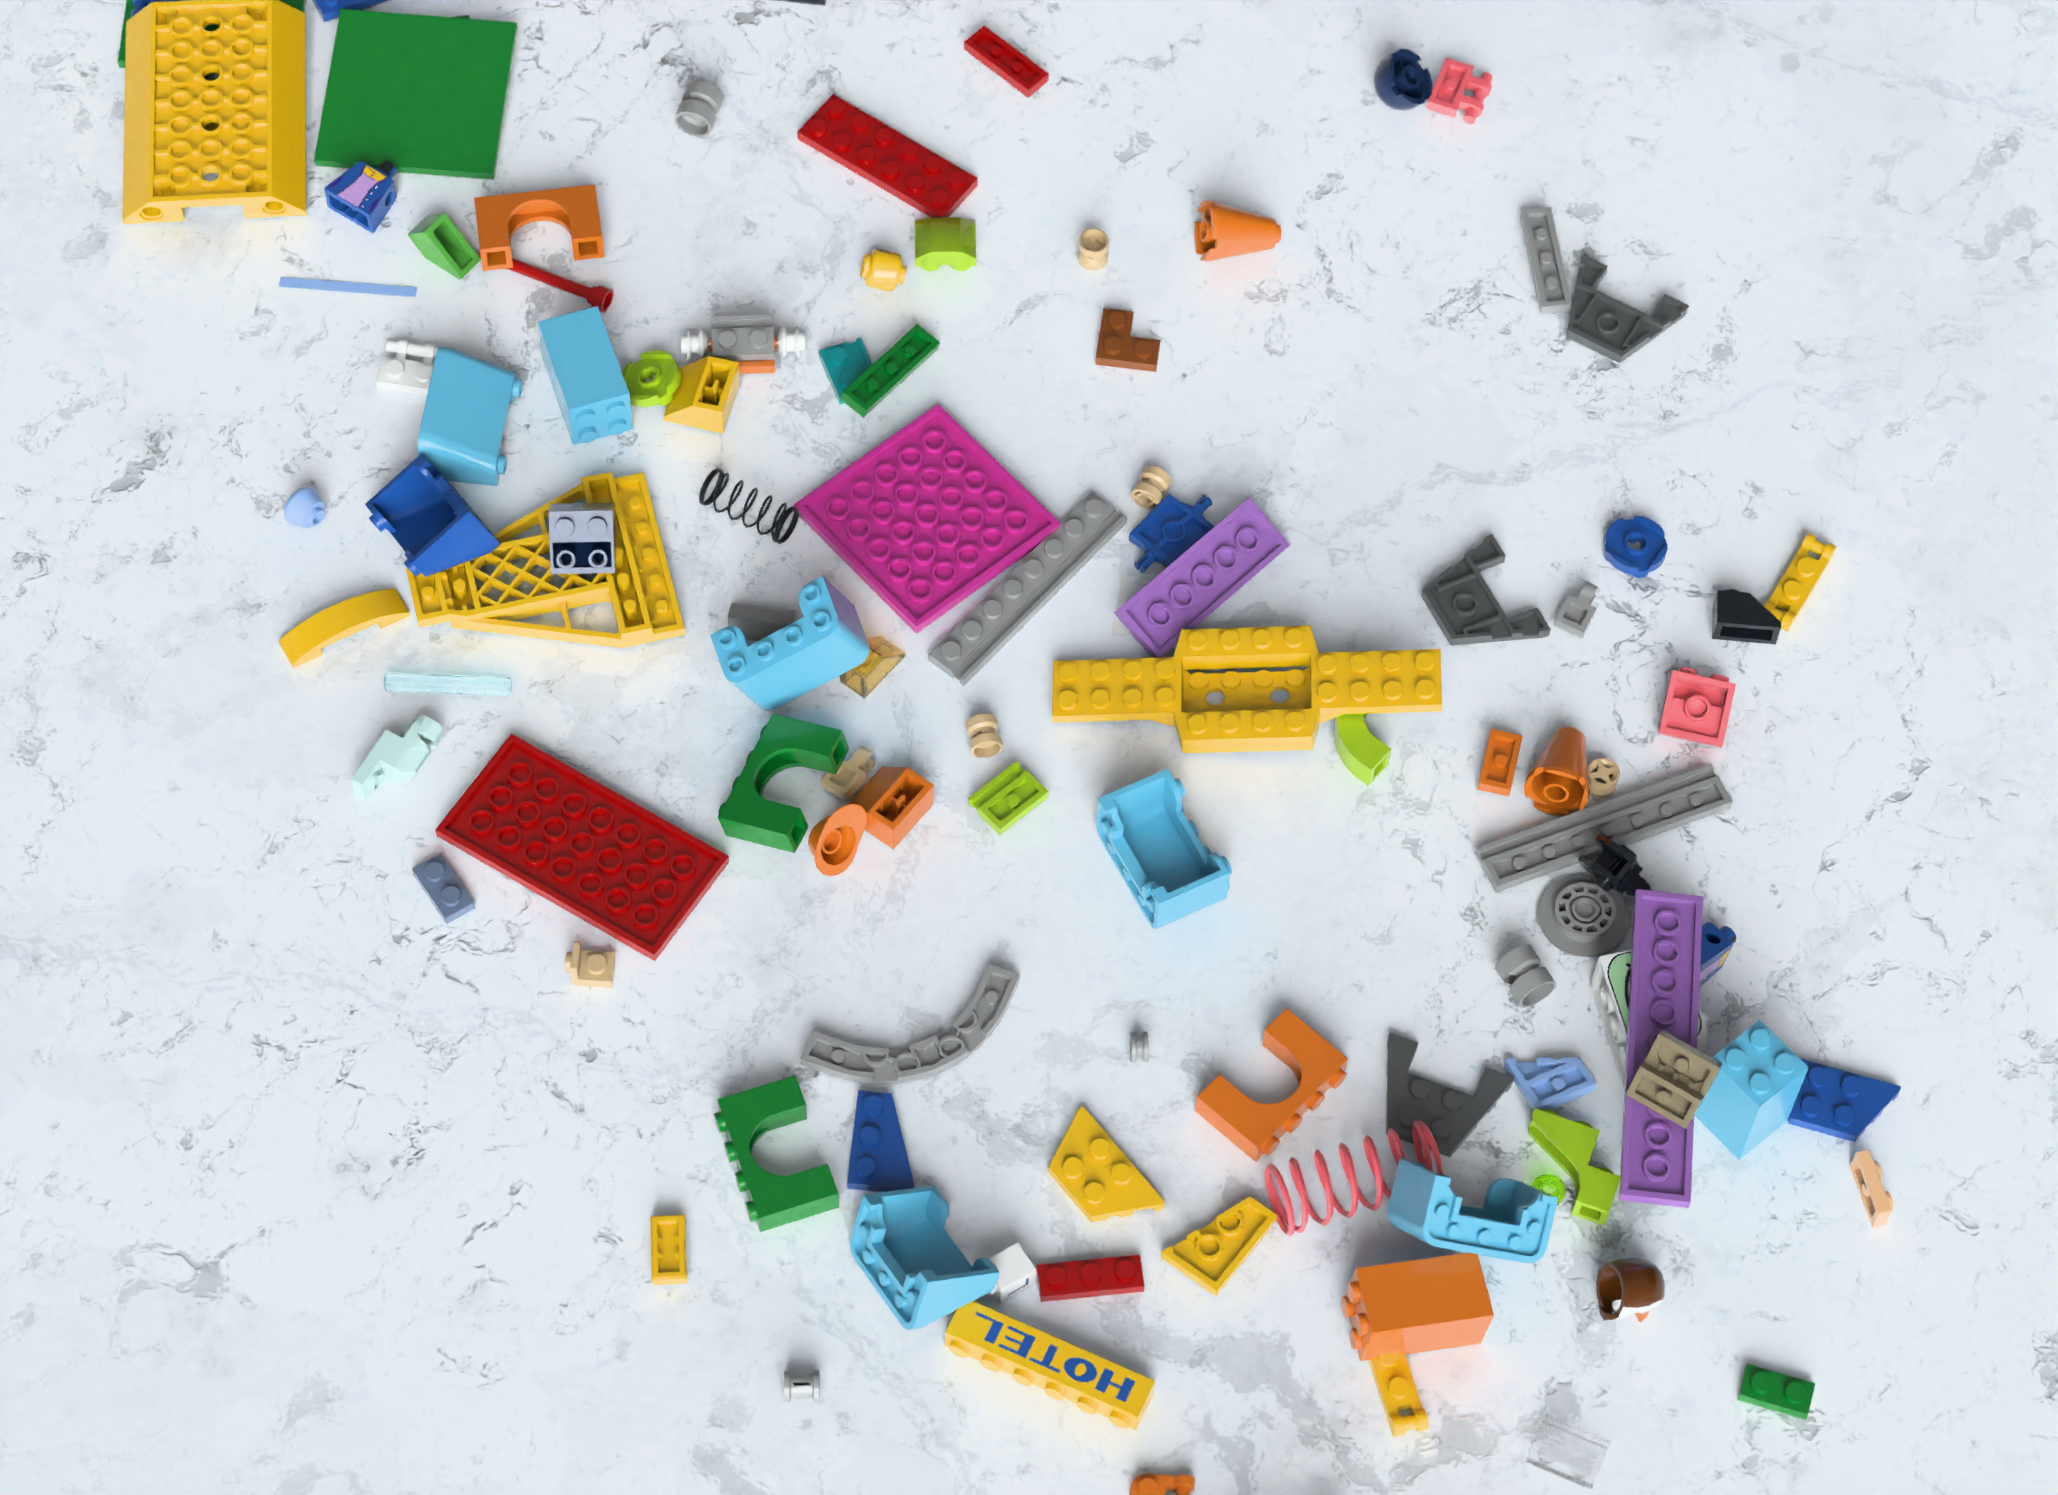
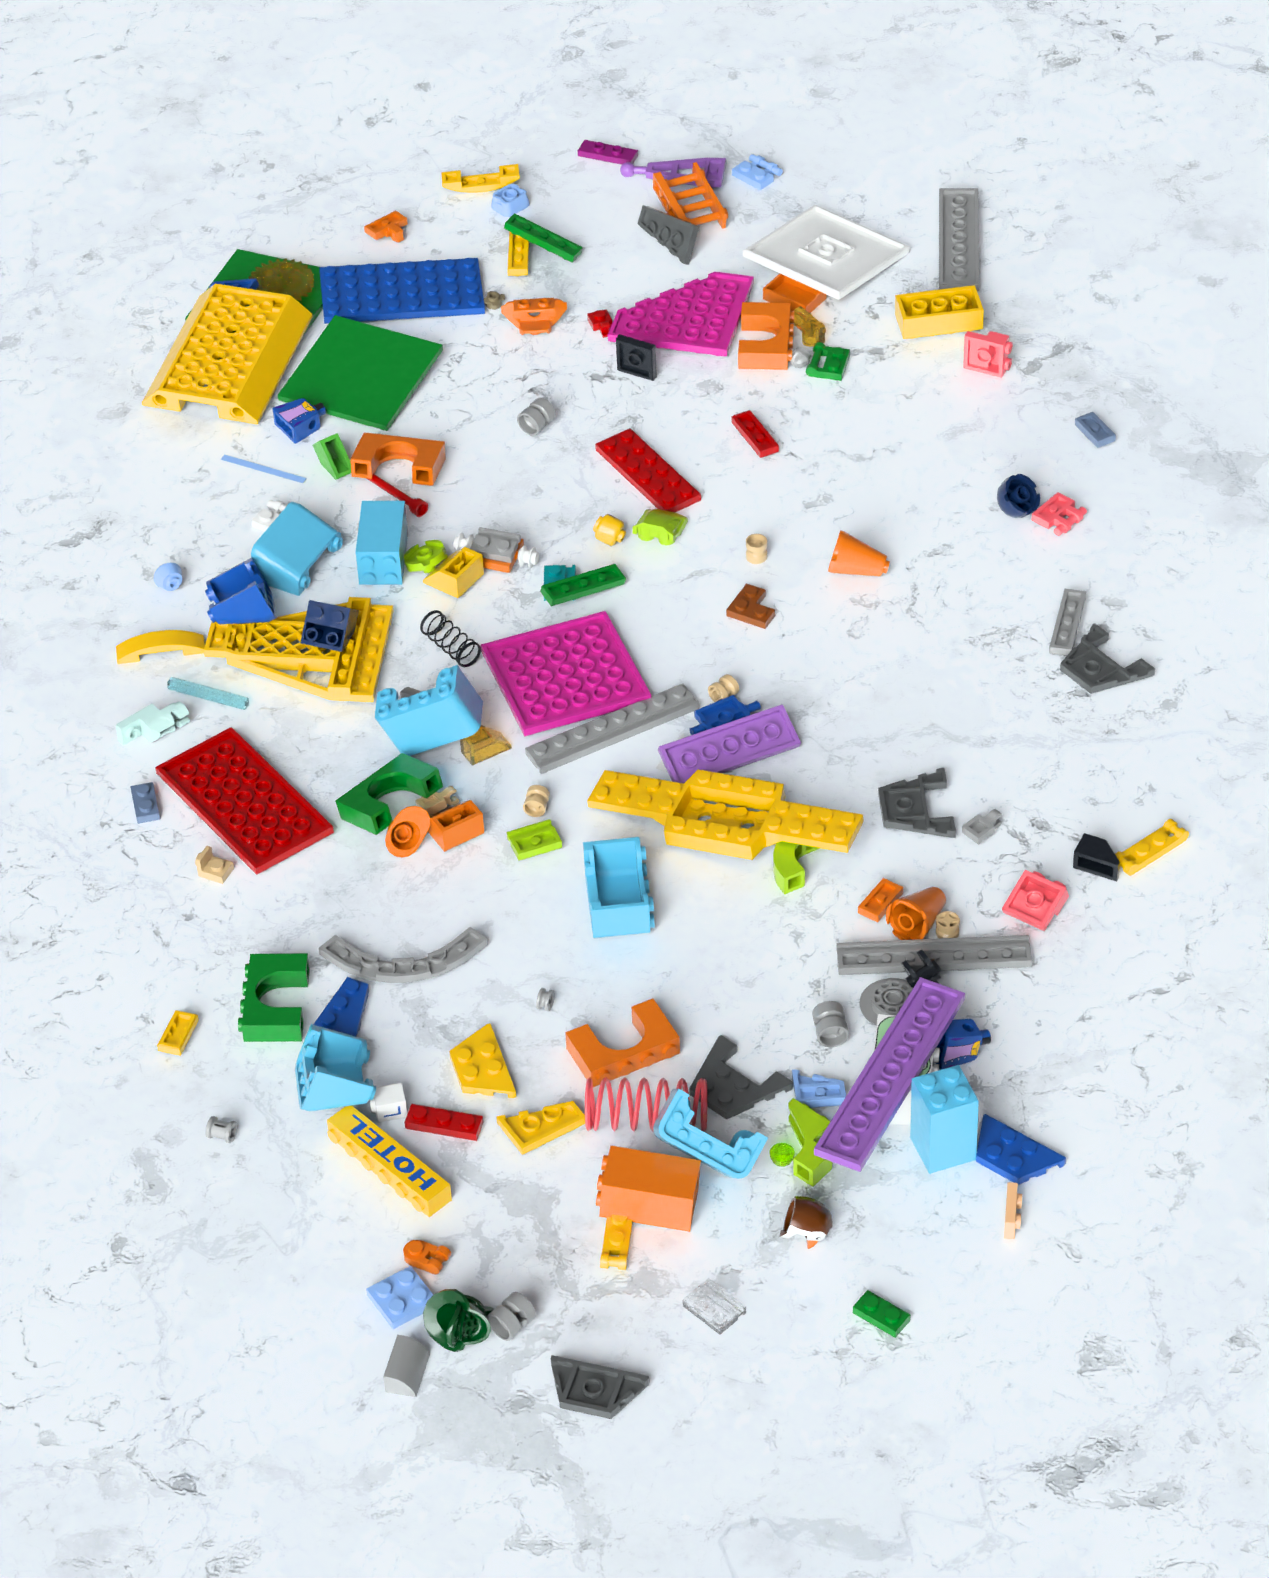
camera: 25 degrees right, 15 degrees down
(1633, 561) = (1044, 808): blue plate -> none
(1674, 1079) = (882, 1086): dark tan slope -> none

